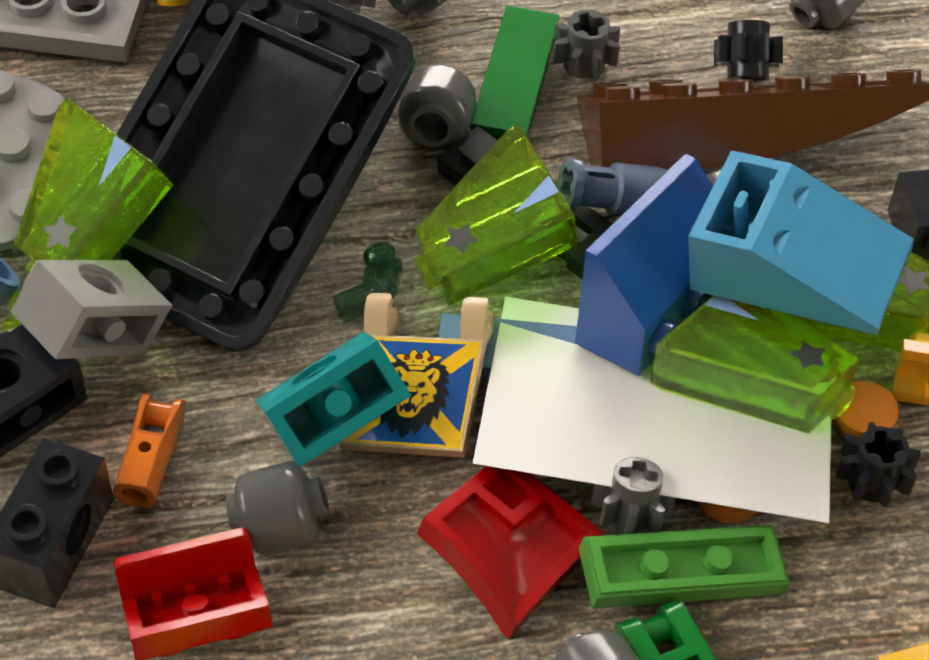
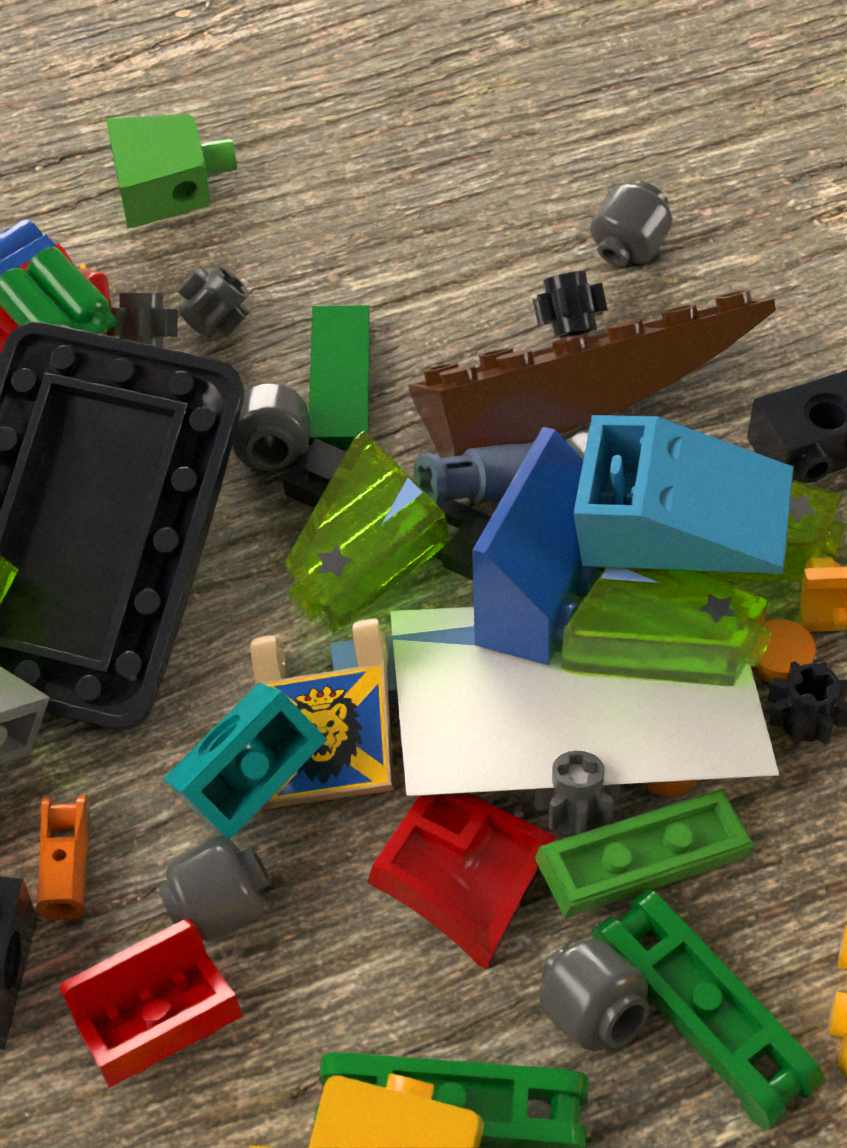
camera: 10 degrees left, 0 degrees up
(379, 276) = (255, 619): clear green arm -> none
(586, 44) = (405, 330): dark grey gear -> none

